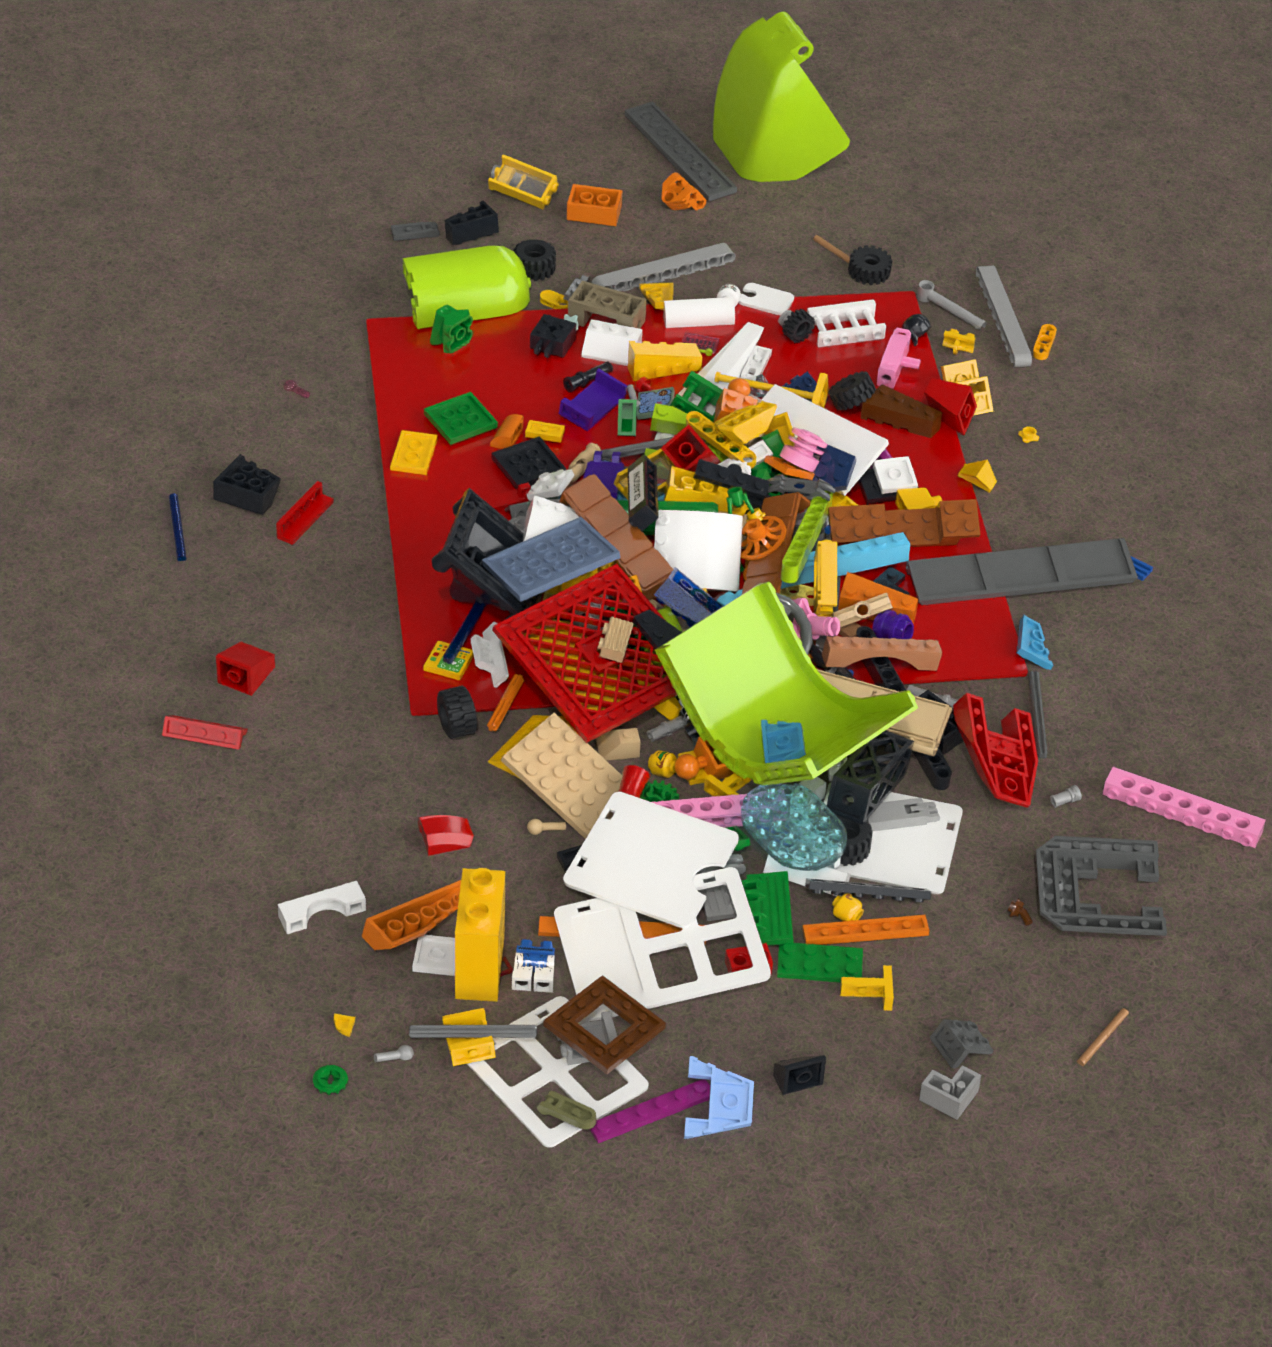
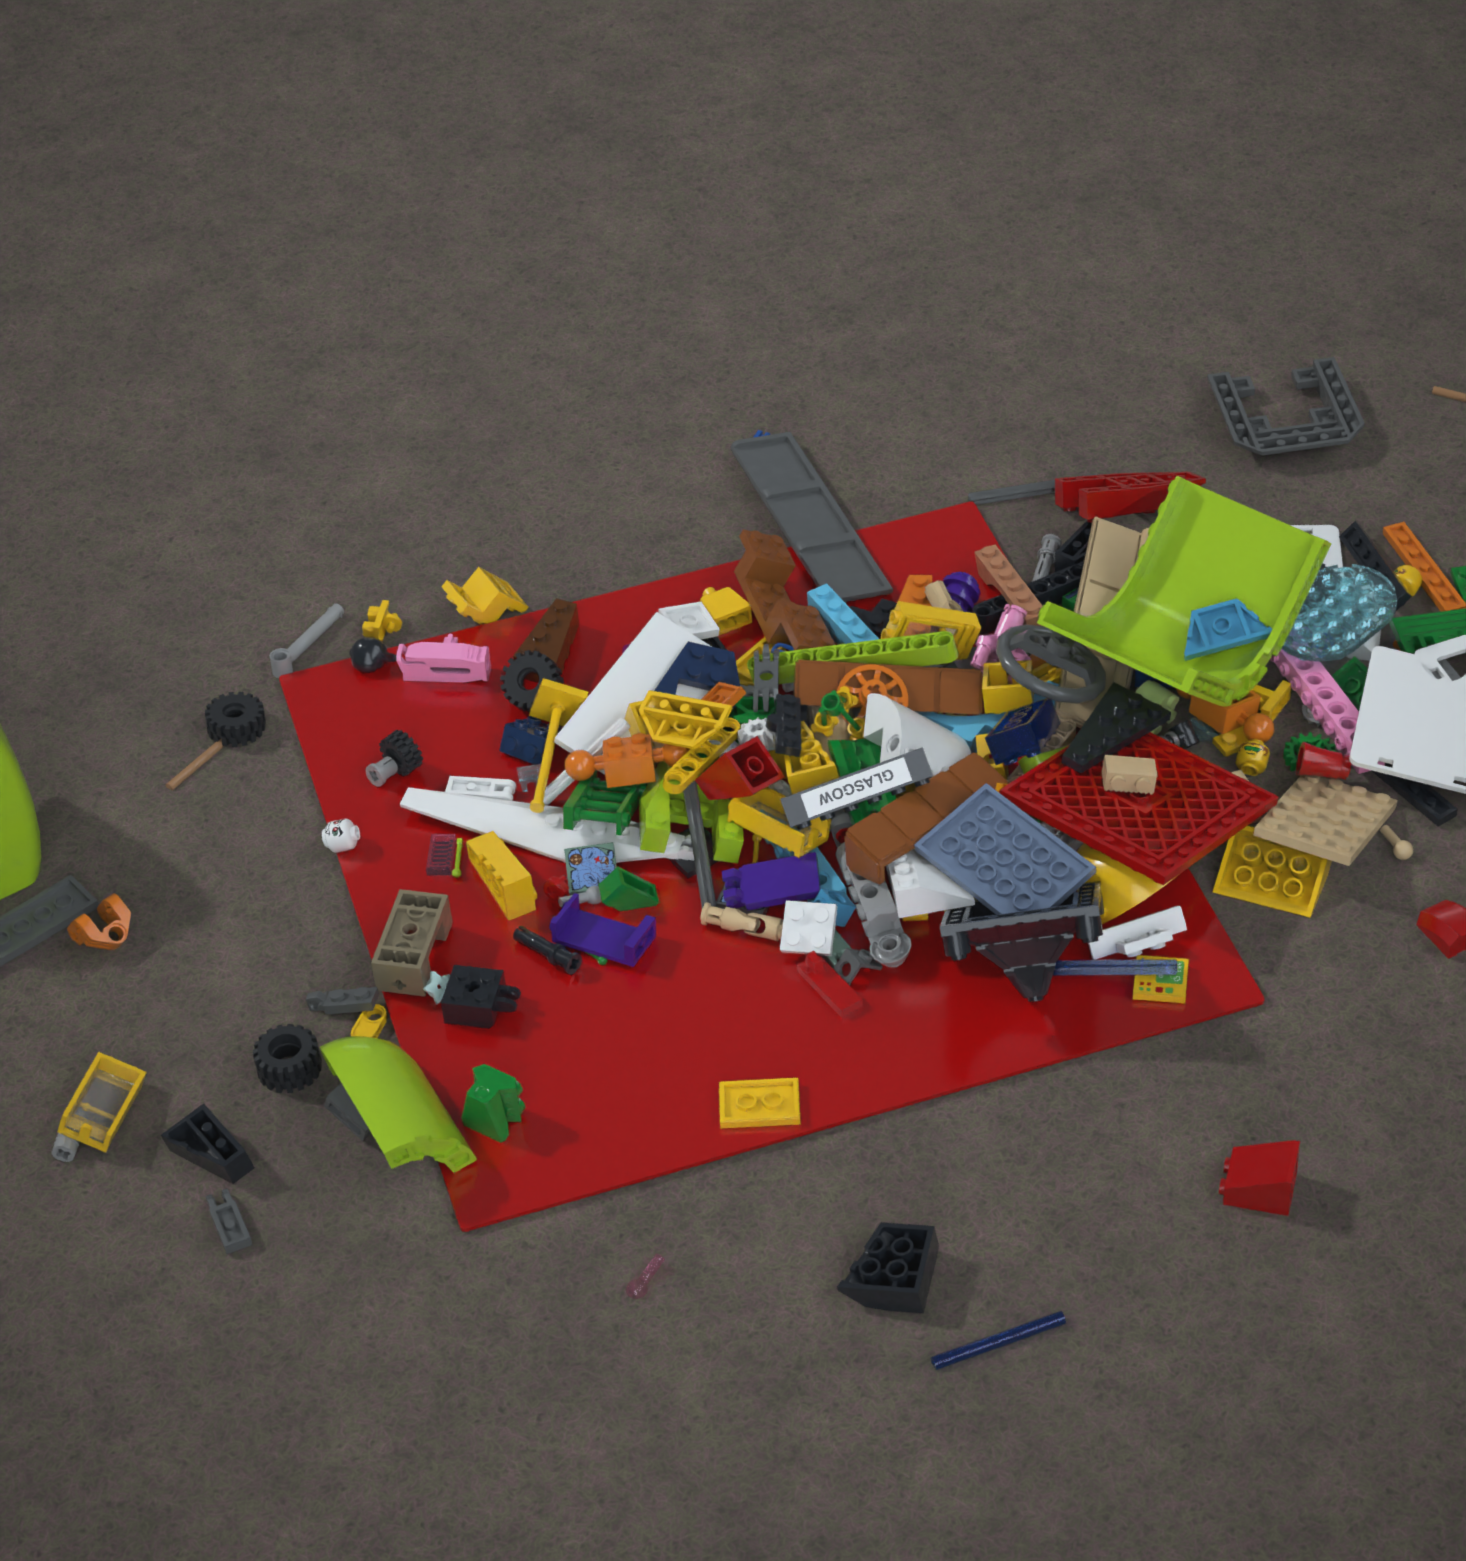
camera: 95 degrees left, 0 degrees up
(203, 731) = (1394, 1194): fence -> none
(303, 514) = (927, 1198): red fence -> none
(457, 712) = (1266, 938): black tyre -> none
(460, 418) = (676, 1063): green plate -> none
(505, 702) = (1218, 910): orange axle -> none
(508, 432) = (693, 1007): orange brick -> none
(526, 461) = (751, 974): black plate -> none
(546, 431) = (679, 970): yellow plate -> none
(594, 205) = (142, 1014): orange brick -> none
(609, 342) = (473, 933): white slope -> none
(657, 293) = (343, 910): yellow wing -> none
(666, 268) = (281, 921): light grey beam -> none
(699, 312) = (383, 857): white brick -> none
(766, 299) = (326, 802): white piece -> none
(803, 449) = (693, 679): bright pink wheel -> none
(847, 312) = (360, 732): white fence -> none
(954, 401) = (538, 590): red slope -> none
(979, 474) = (645, 570): yellow slope -> none
(1004, 316) = (315, 590): light grey beam -> none
(1016, 909) = (1338, 466): reddish brown plate -> none
(1028, 434) = (547, 547): yellow plate -> none
(1030, 643) = (929, 500): dark azure wing -> none
(1044, 337) = (353, 550): light orange beam -> none
(1069, 795) = (1151, 452): light grey pin -> none
(1184, 807) = (1135, 374): bright pink brick -> none

